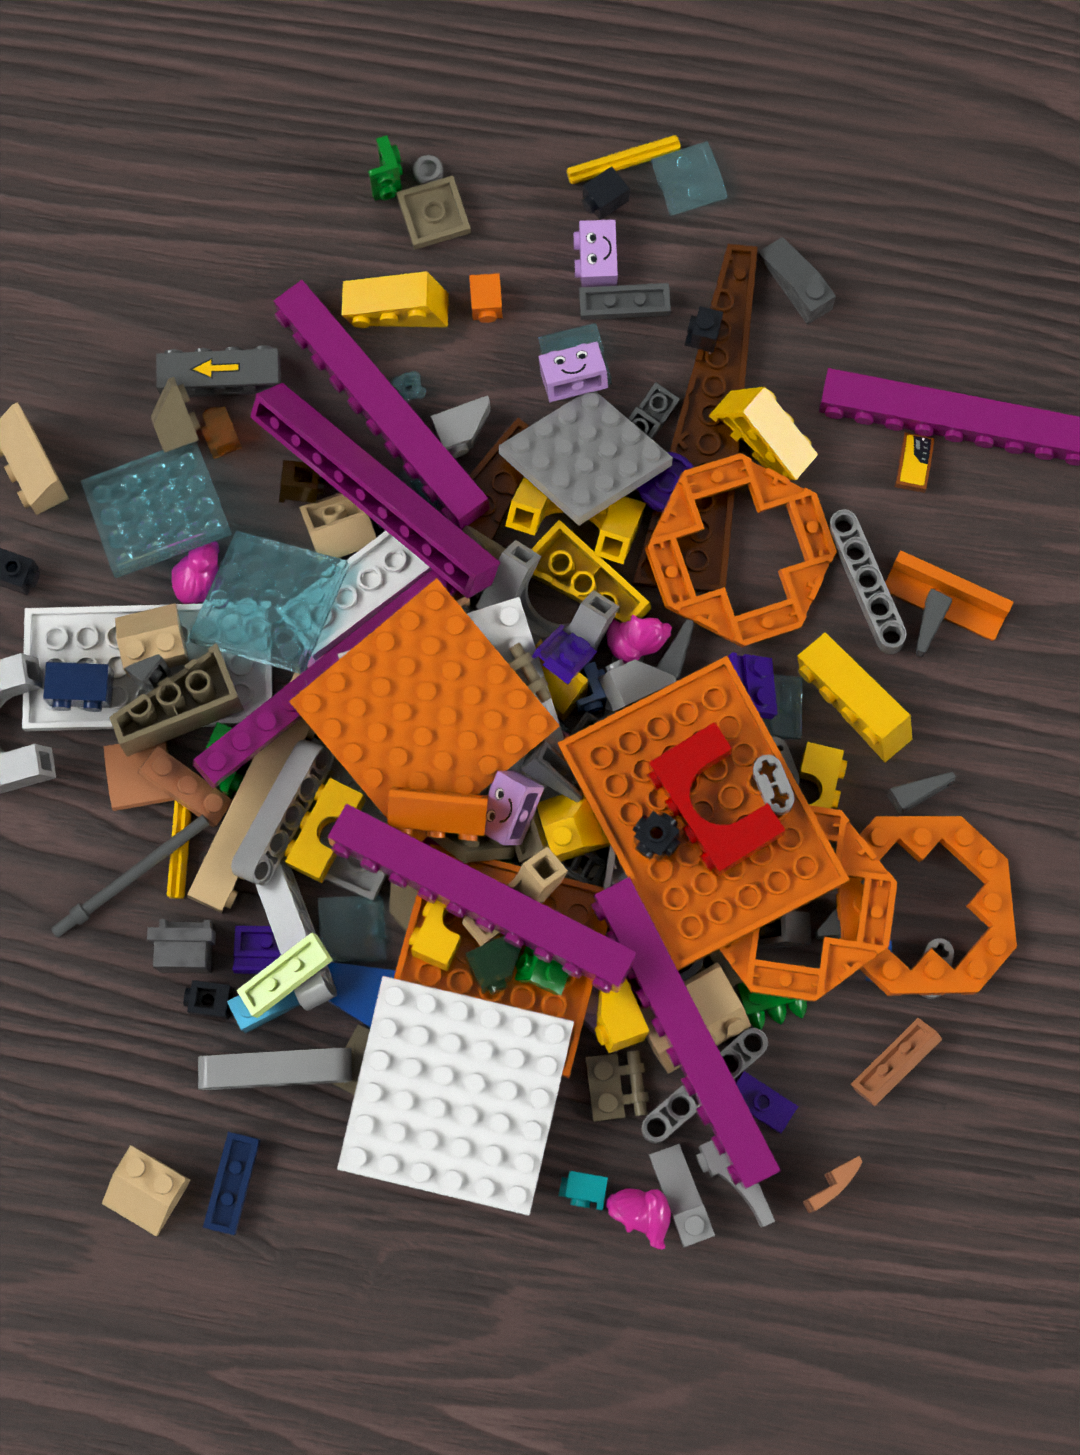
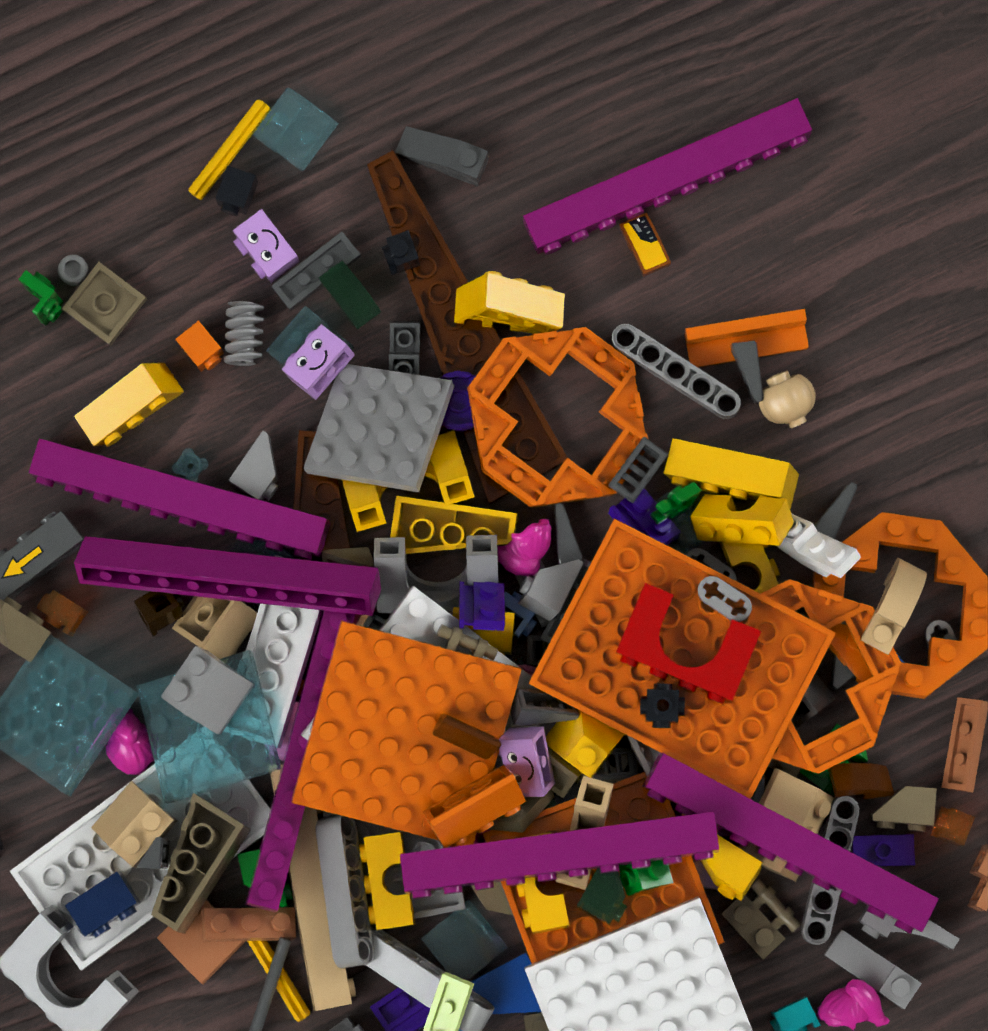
camera: 30 degrees left, 5 degrees up
(288, 566) = (207, 690): none -> light grey slope
(472, 747) = (466, 736): none -> reddish brown slope
(527, 309) = (242, 333): none -> light grey piece
(638, 335) = (349, 295): none -> clear green slope
(782, 1023) = (861, 778): none -> reddish brown slope
(792, 687) = (678, 501): none -> green plate
(796, 621) = (653, 450): none -> dark grey slope
(809, 1079) = (907, 806): none -> dark tan slope
(837, 1122) = (952, 826): none -> clear orange brick
(850, 749) = (762, 523): none -> yellow arch
(877, 795) = (818, 550): none -> white slope
(915, 895) = (896, 605): none -> tan arch
(946, 668) = (787, 399): none -> tan plant

